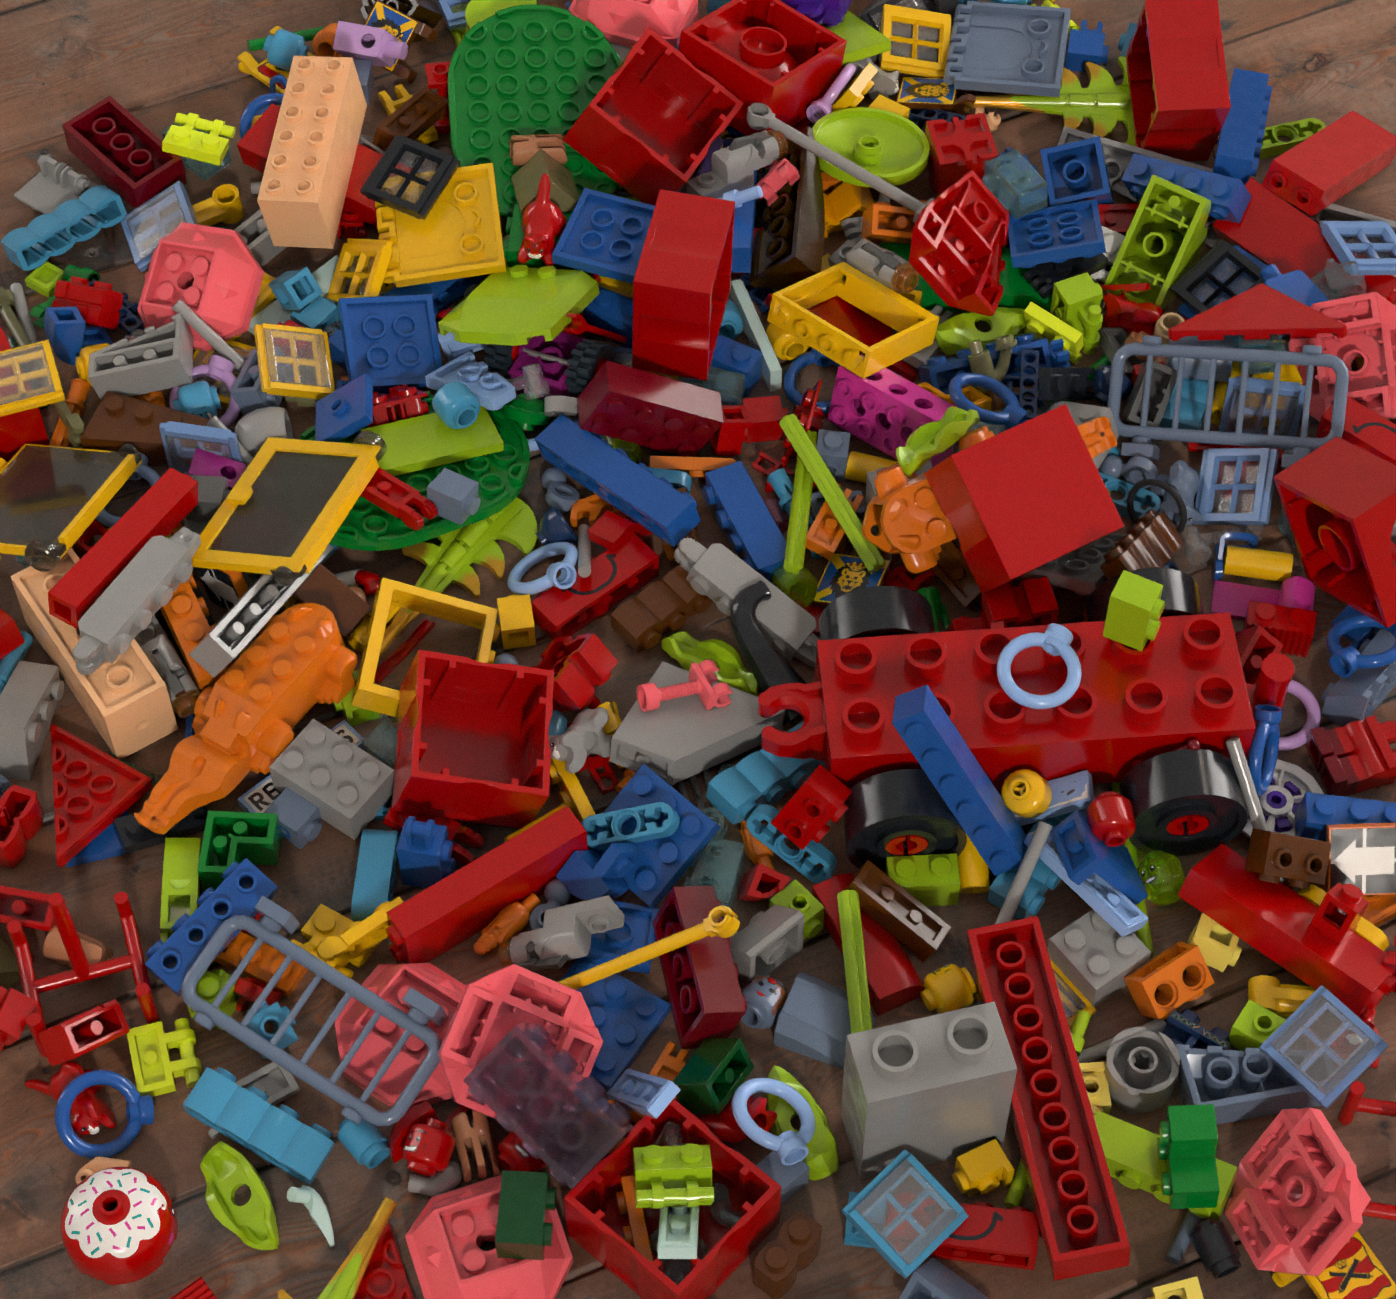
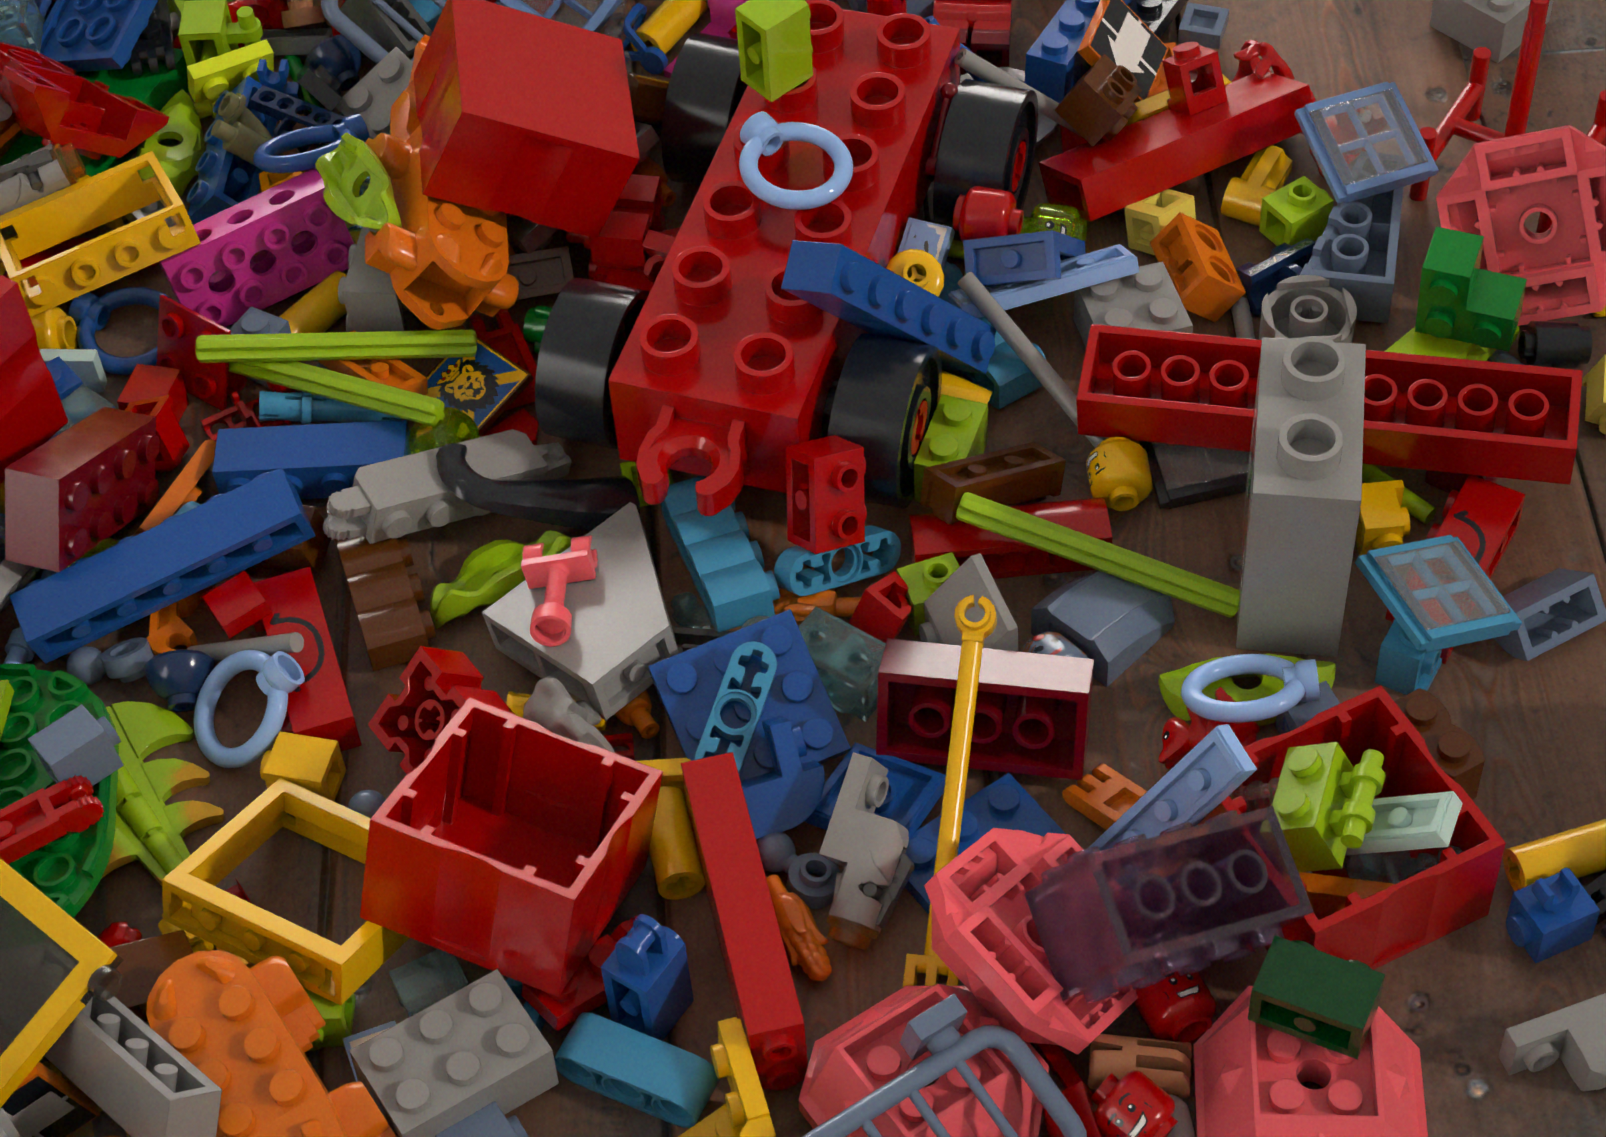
camera: 65 degrees left, 5 degrees down
(713, 1075) = (1141, 739): dark green brick -> none

